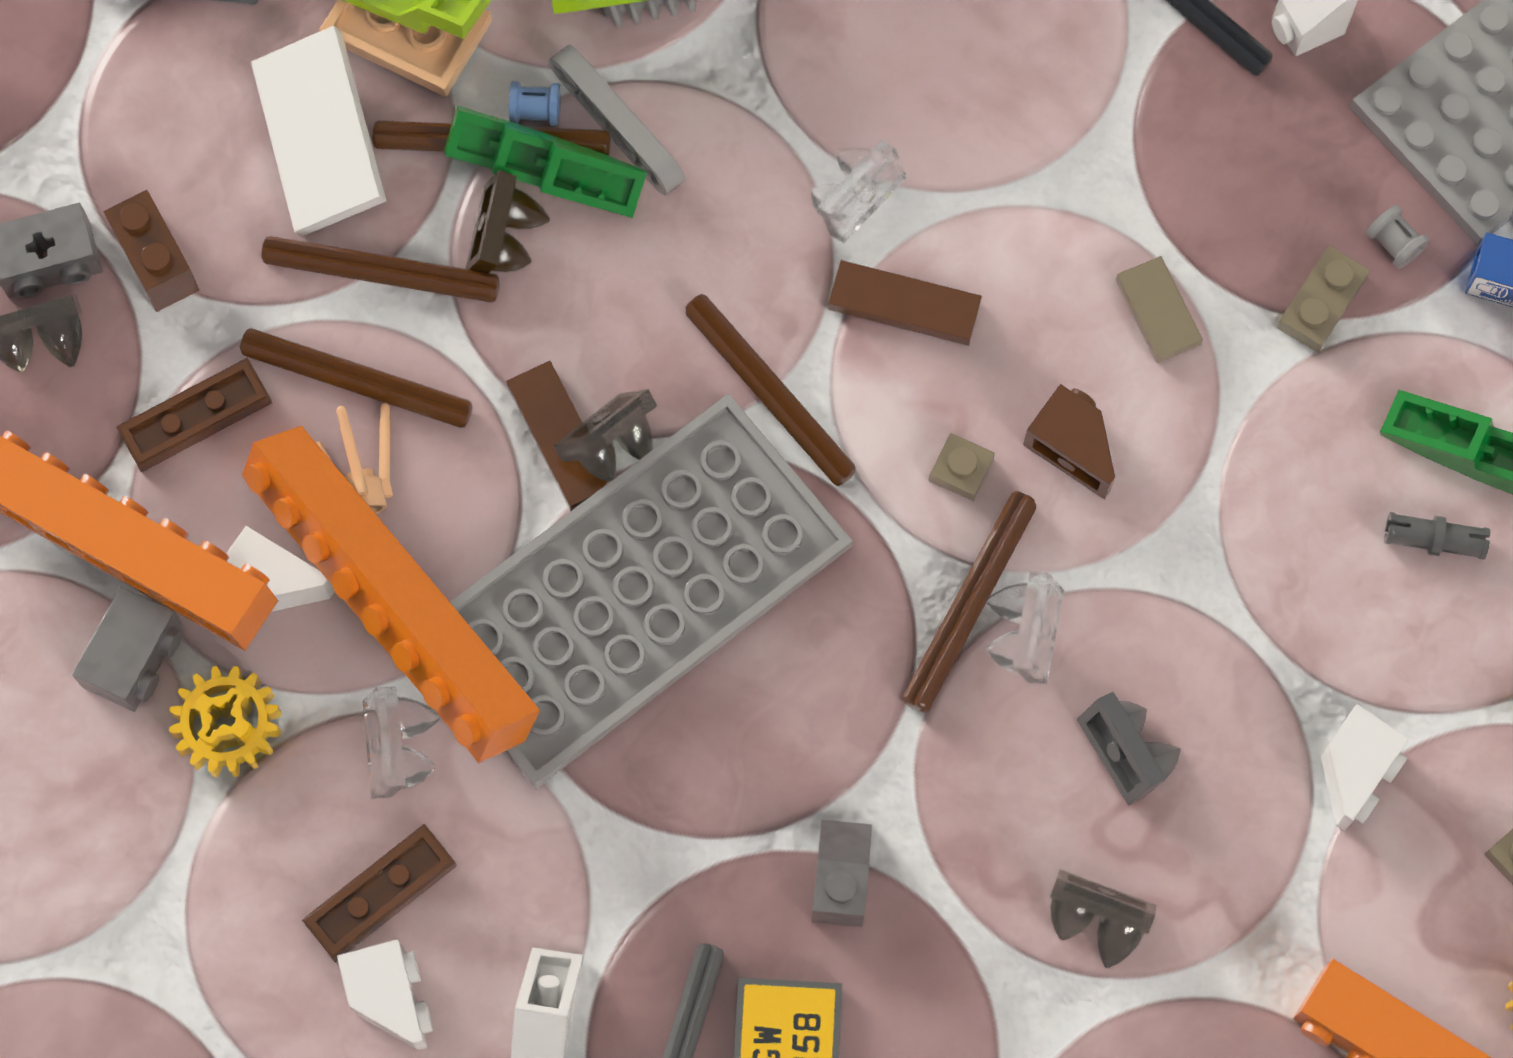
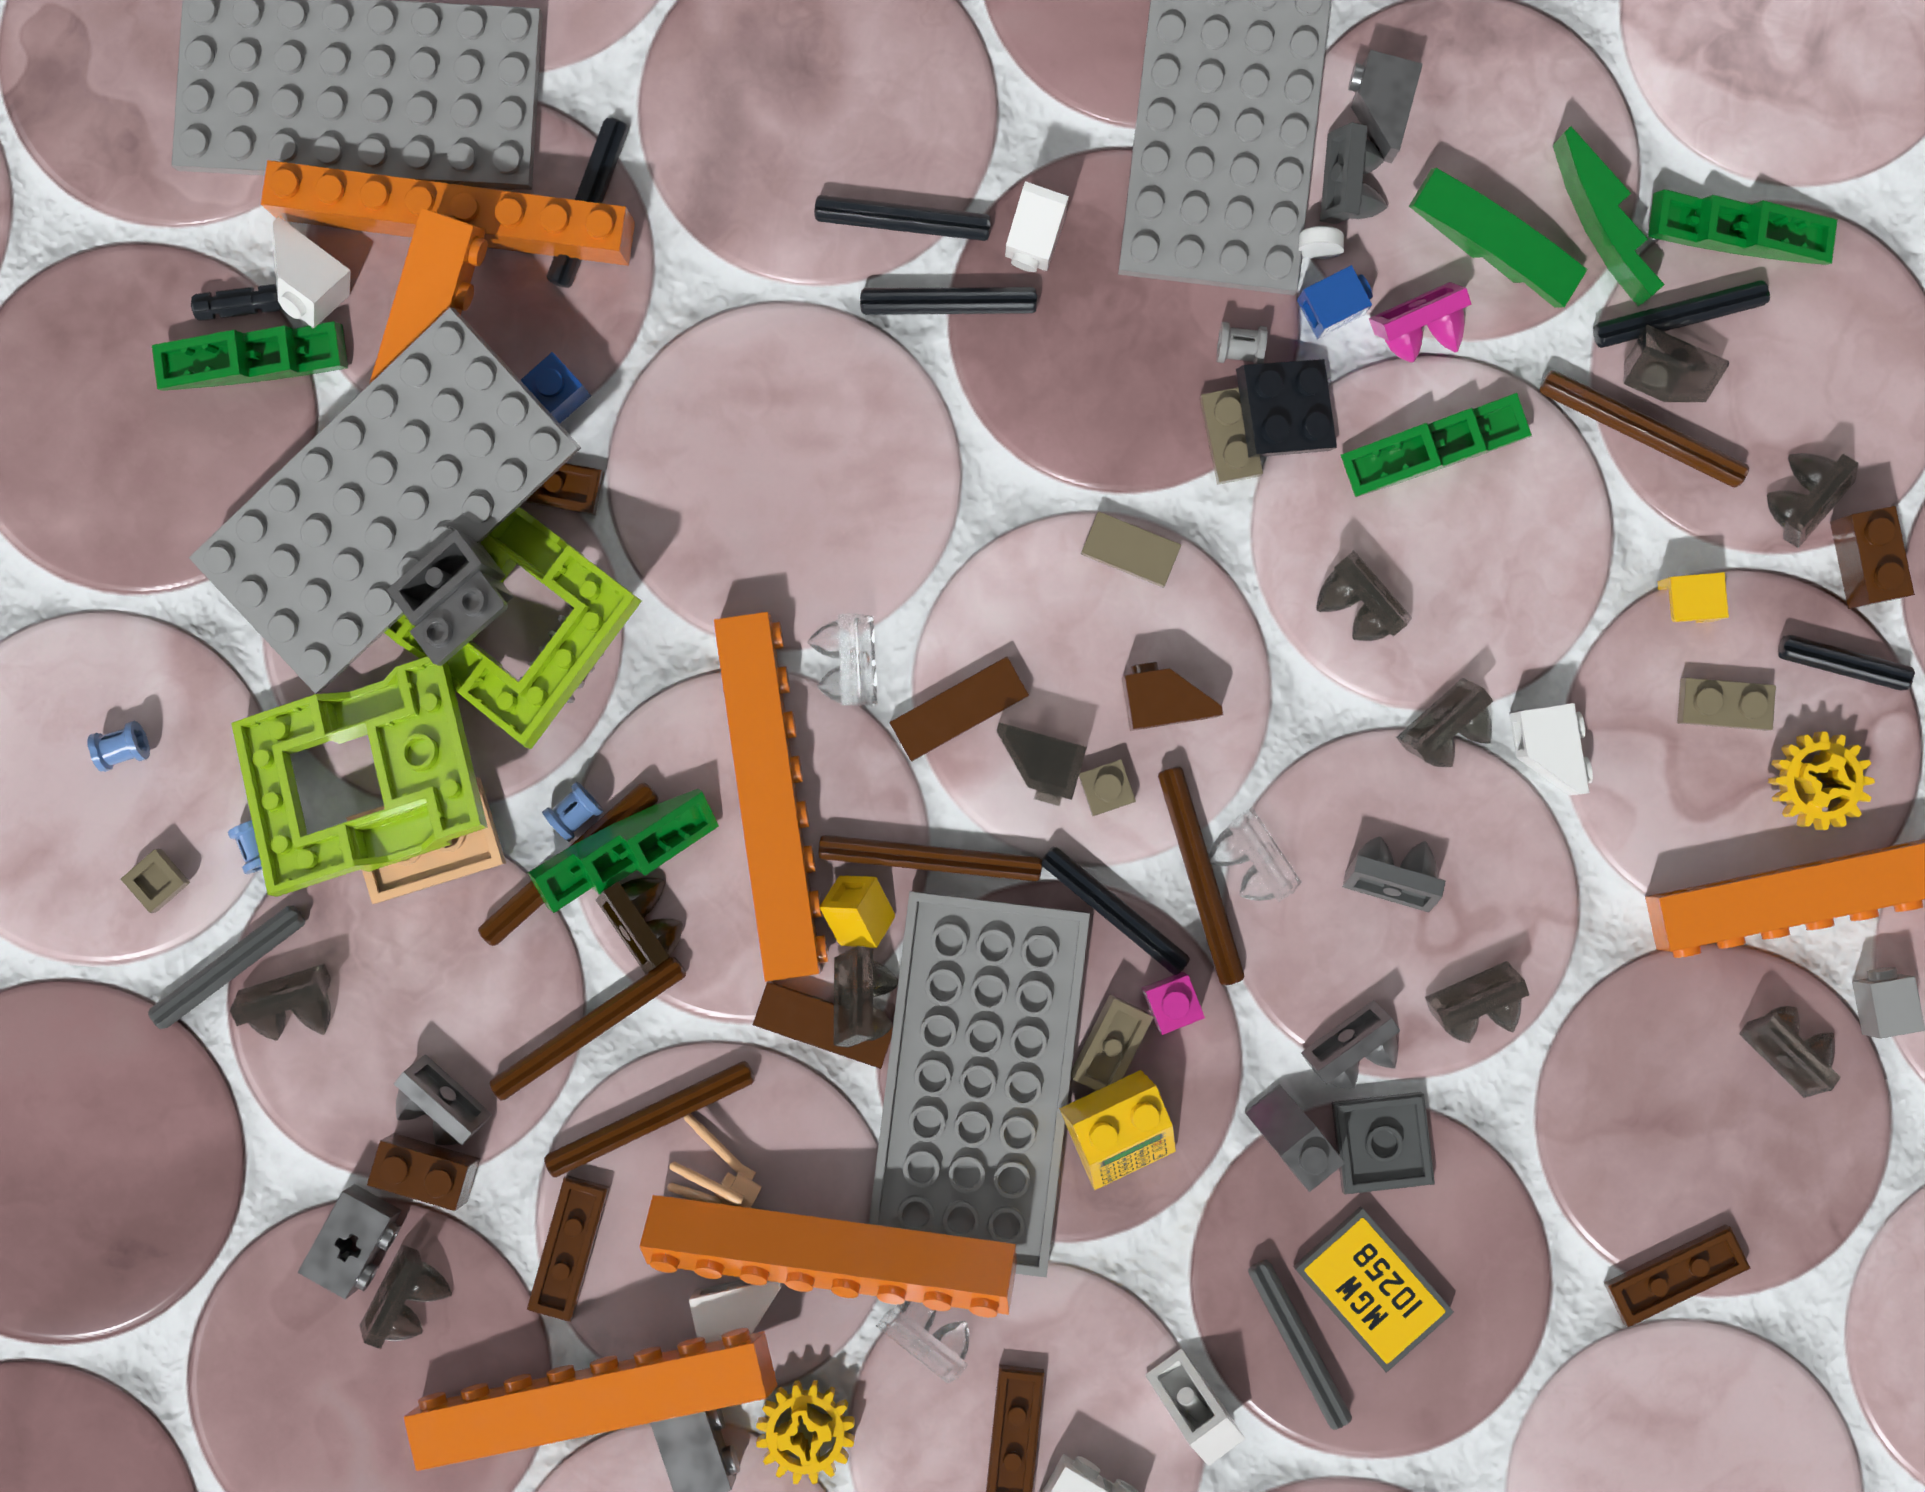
camera: 45 degrees left, 15 degrees up
(200, 49) = (301, 992): none -> clear smoke tile
(218, 202) = (431, 1091): none -> flat silver tile
(318, 131) = (446, 976): white tile -> none
(617, 119) = (640, 769): light grey beam -> none
(674, 372) = (857, 911): none -> yellow panel
(692, 228) = (768, 796): none -> orange brick
(707, 729) = (1120, 1128): none -> yellow slope
(767, 658) = (1111, 1044): none -> dark tan plate
(849, 670) = (1173, 1003): none -> dark pink brick
(874, 564) = (1115, 910): none -> black axle
(910, 951) = (1383, 1143): none -> dark grey tile
(932, 397) = (1043, 762): none -> clear smoke slope
(983, 848) = (1365, 1034): none -> flat silver tile
(1310, 673) = (1458, 710): none -> clear smoke tile
(1319, 494) = (1355, 582): none -> clear smoke tile
(1388, 313) = (1286, 408): none -> black plate
(1437, 535) = (1457, 535): dark grey pin -> none

